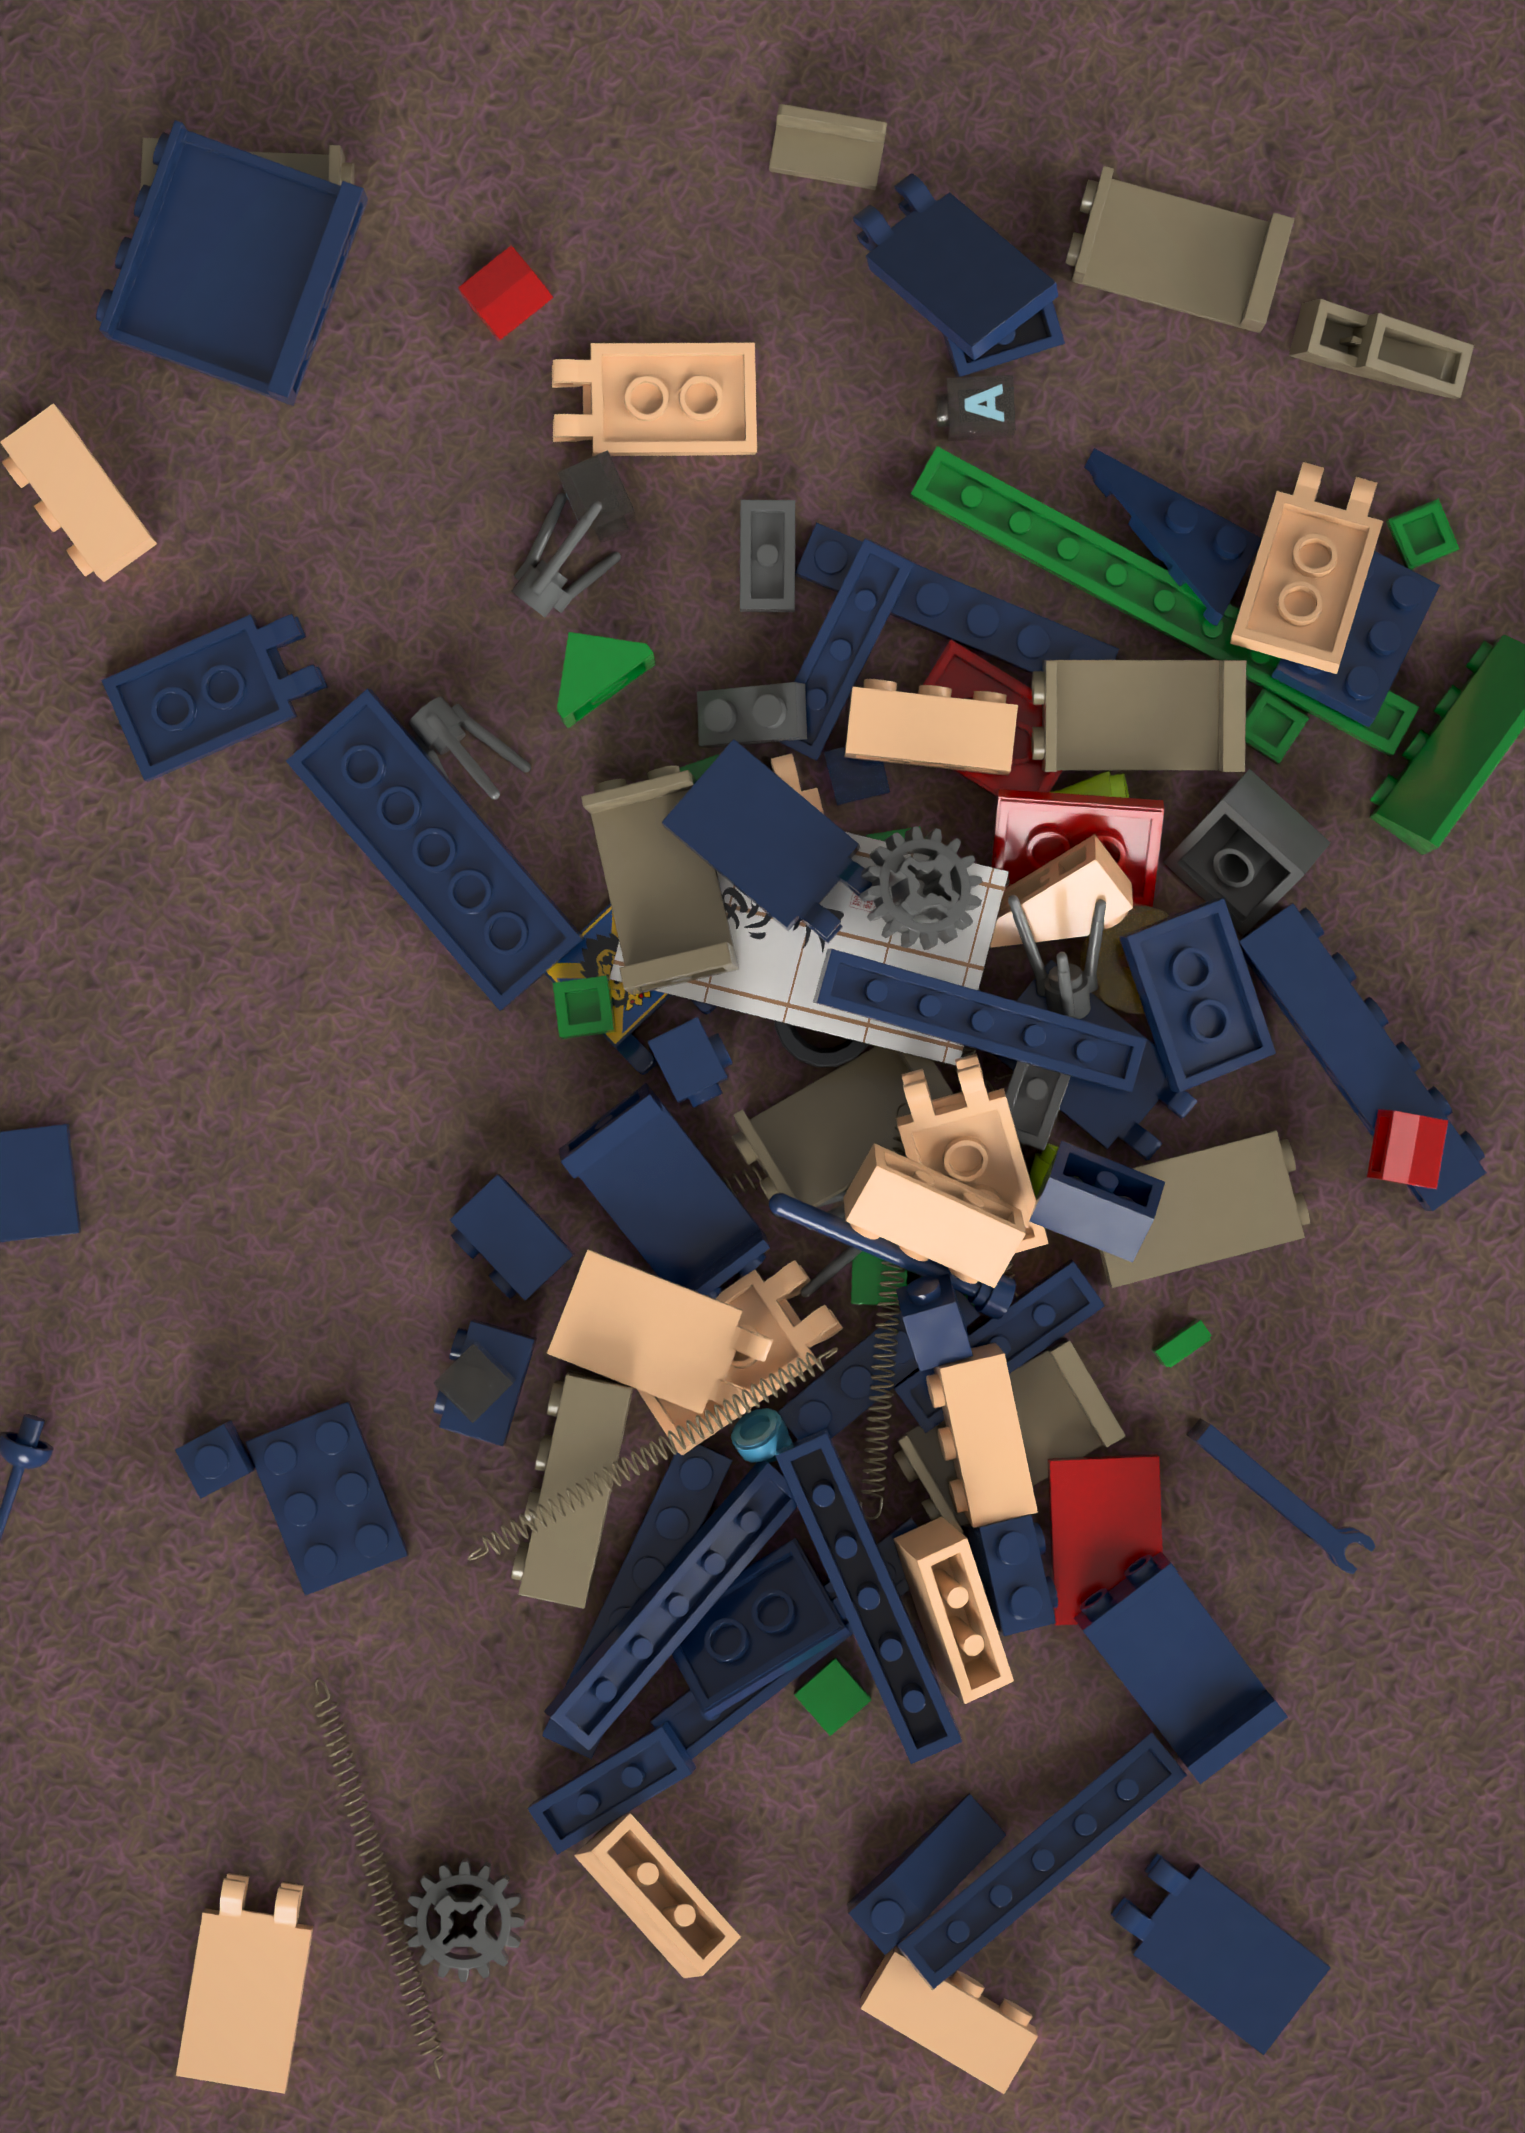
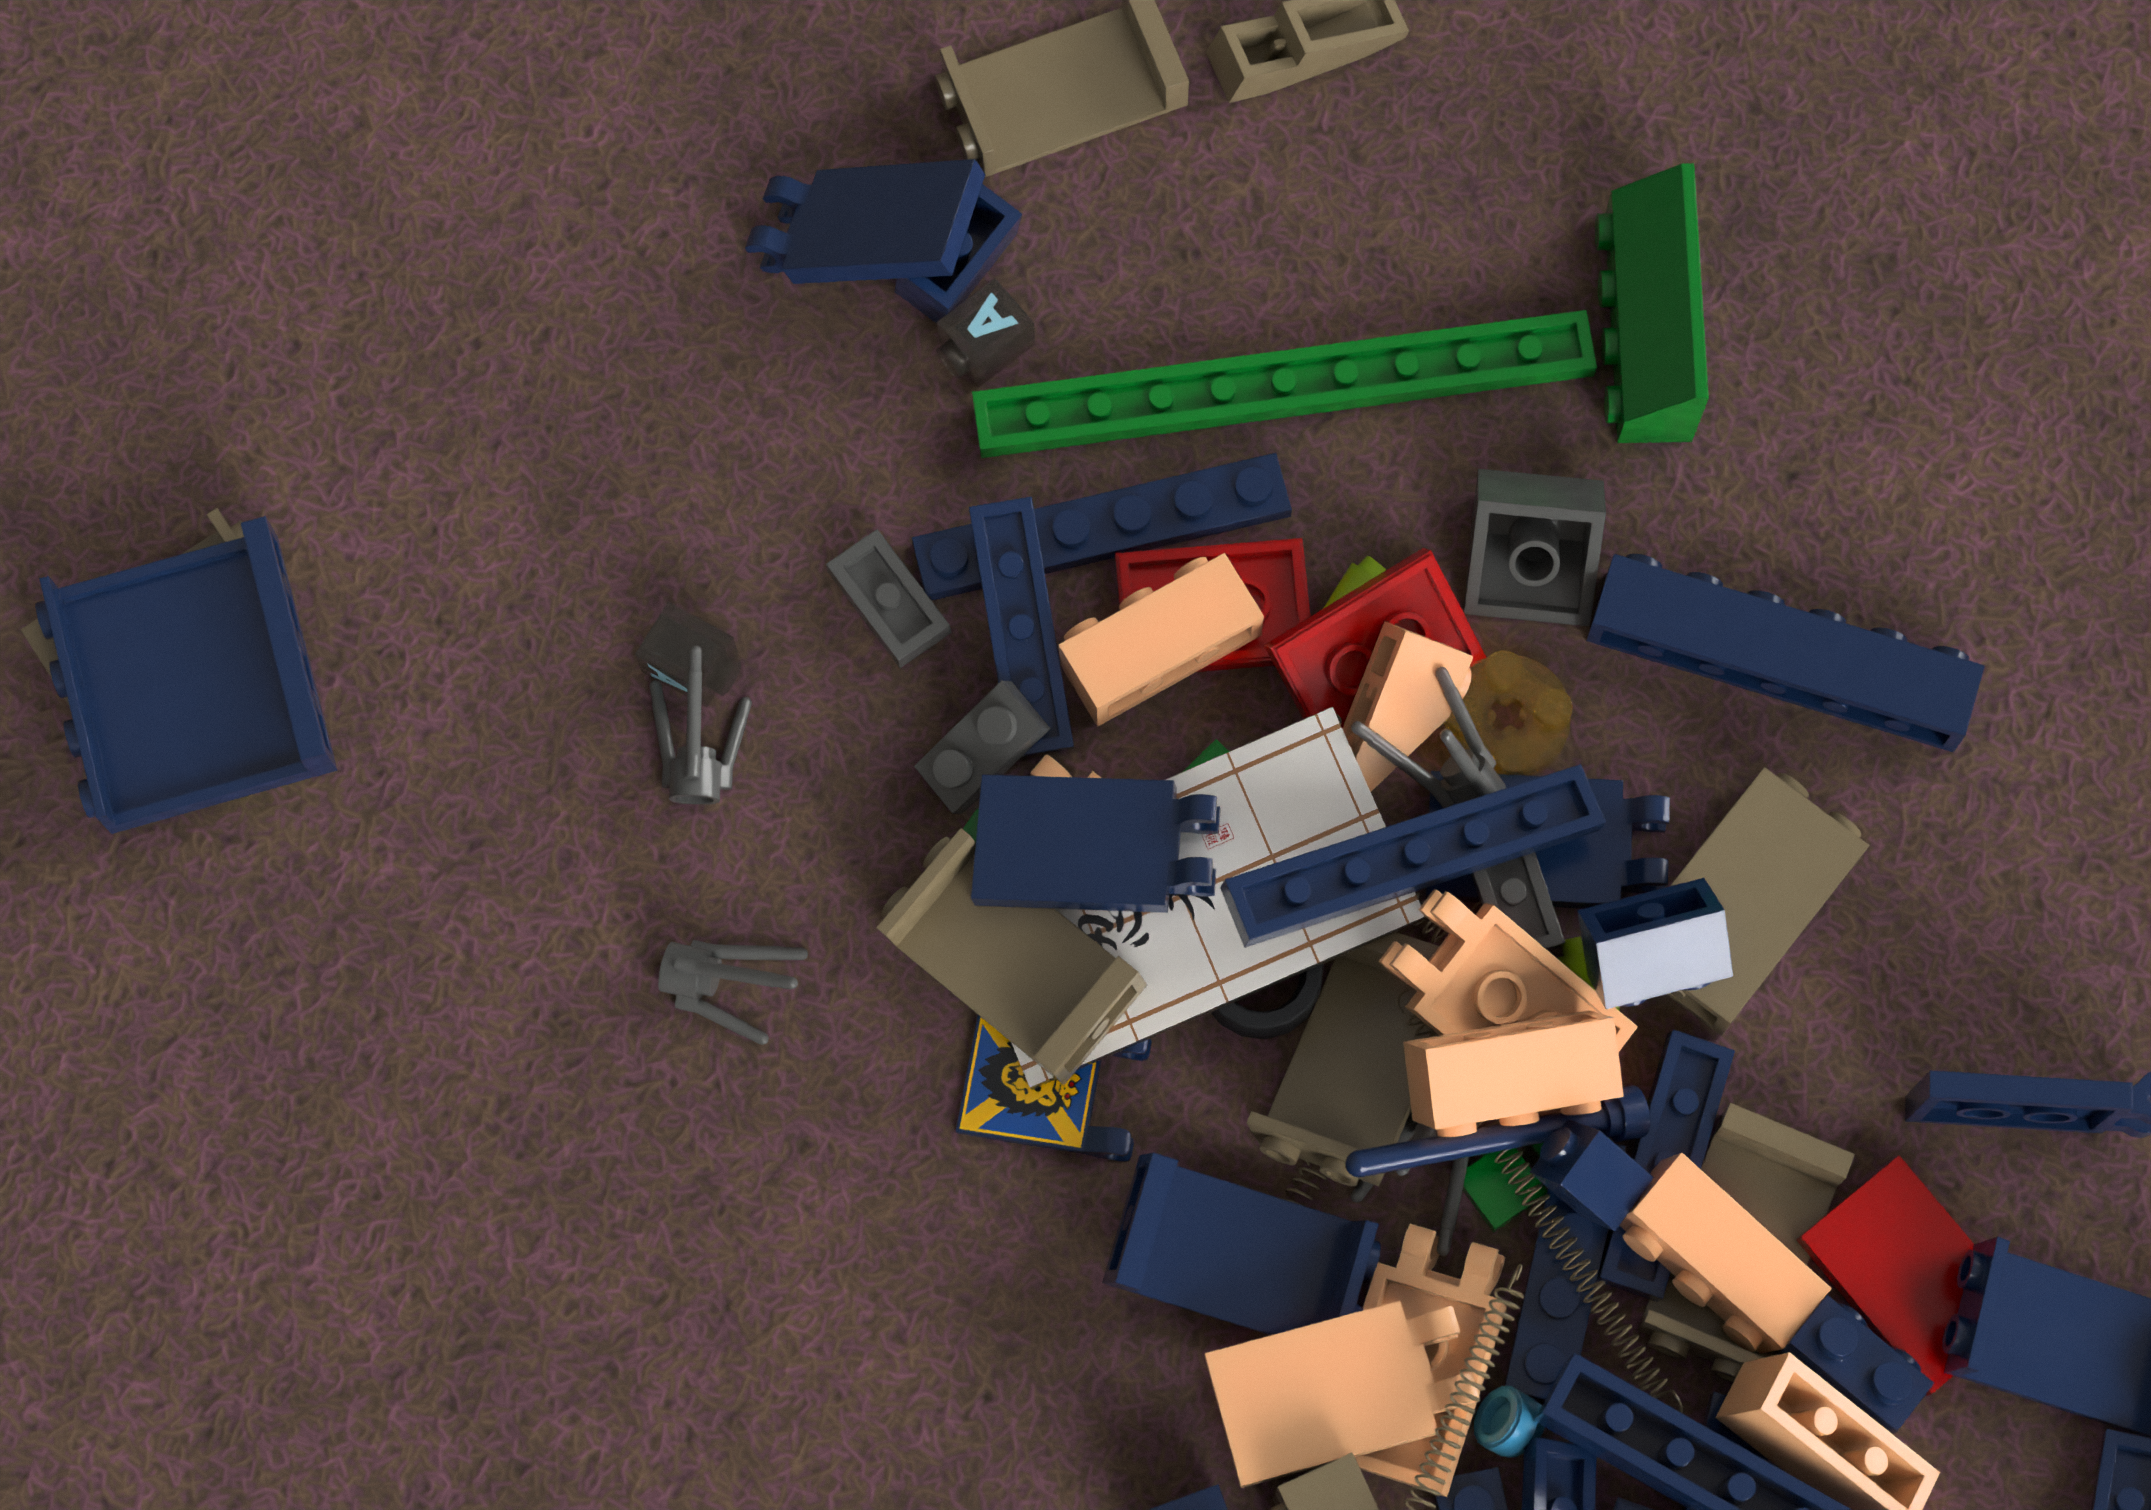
camera: 30 degrees left, 15 degrees down
(75, 494) = (181, 1003): light nougat brick -> none
(209, 693) = (444, 1100): dark blue tile -> none
(435, 849) = (771, 1088): dark blue plate -> none
(505, 293) = (469, 538): red piece -> none
(510, 1239) = (1119, 1409): dark blue brick -> none
(584, 1007) = (1025, 1130): green plate -> none
(596, 671) = (807, 801): green slope -> none
(662, 399) = (684, 531): light nougat tile -> none
(692, 1062) = (1168, 1102): dark blue brick -> none
(827, 146) = (675, 207): dark tan panel -> none
(855, 778) = (1121, 740): clear blue tile -> none
(937, 873) = (1260, 769): dark grey gear -> none
(1140, 715) = (1345, 489): dark tan panel -> none
(1182, 1343) = (1834, 1032): green tile -> none
(1187, 537) = (1249, 314): dark blue wing -> none
(1197, 995) = (1593, 699): dark blue plate -> none
(1272, 726) = (1465, 425): green tile -> none
(1308, 574) = (1398, 260): light nougat tile -> none
(1378, 642) = (1477, 286): dark blue plate -> none
(1407, 1148) = (1898, 691): red piece -> none
(1422, 534) = (1468, 169): green tile -> none

